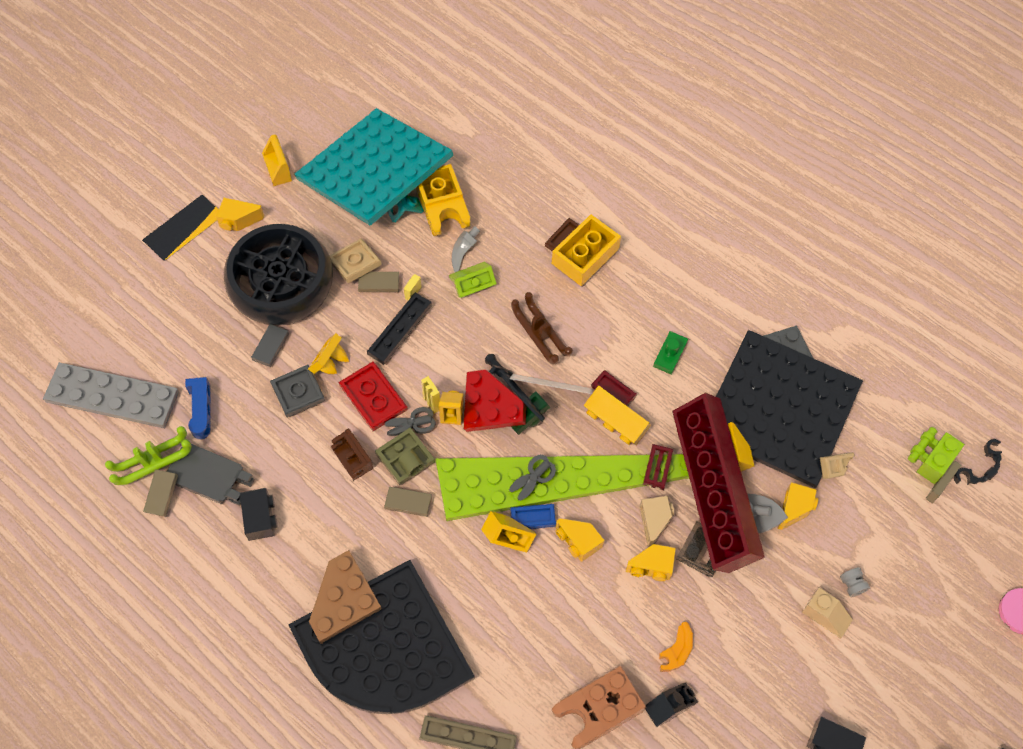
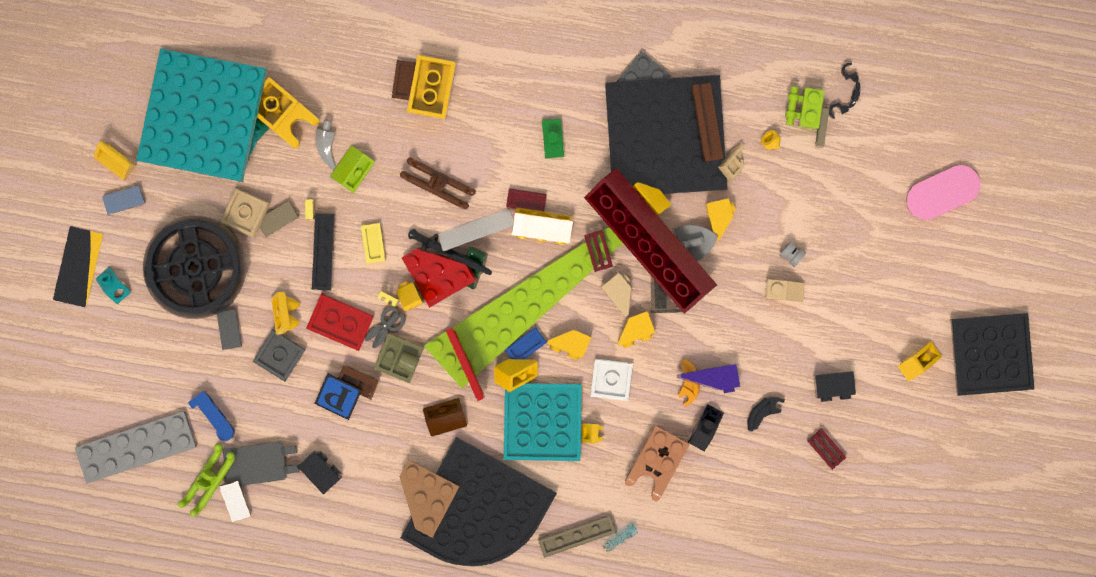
camera: 25 degrees left, 25 degrees up
(198, 249) = (110, 283): none -> teal bracket
(238, 214) = (117, 231): yellow slope -> none
(266, 198) = (123, 200): none -> sand blue tile
(324, 455) = (338, 396): none -> piece
(408, 501) = (424, 391): dark tan tile -> none
(411, 536) = (444, 417): none -> reddish brown panel
(449, 347) = (373, 243): none -> light yellow tile
(464, 489) = (467, 368): none -> red tile
(504, 598) = (543, 422): none -> teal plate
(529, 480) = (507, 320): dark grey piece -> none
(546, 637) = (590, 433): none -> yellow tile
(599, 598) = (611, 379): none -> white tile
(708, 656) = (716, 378): none -> dark purple slope
(742, 723) = (761, 410): none -> black piece
(830, 411) = (707, 122): none -> reddish brown fence
(885, 465) = (771, 140): none -> yellow tile

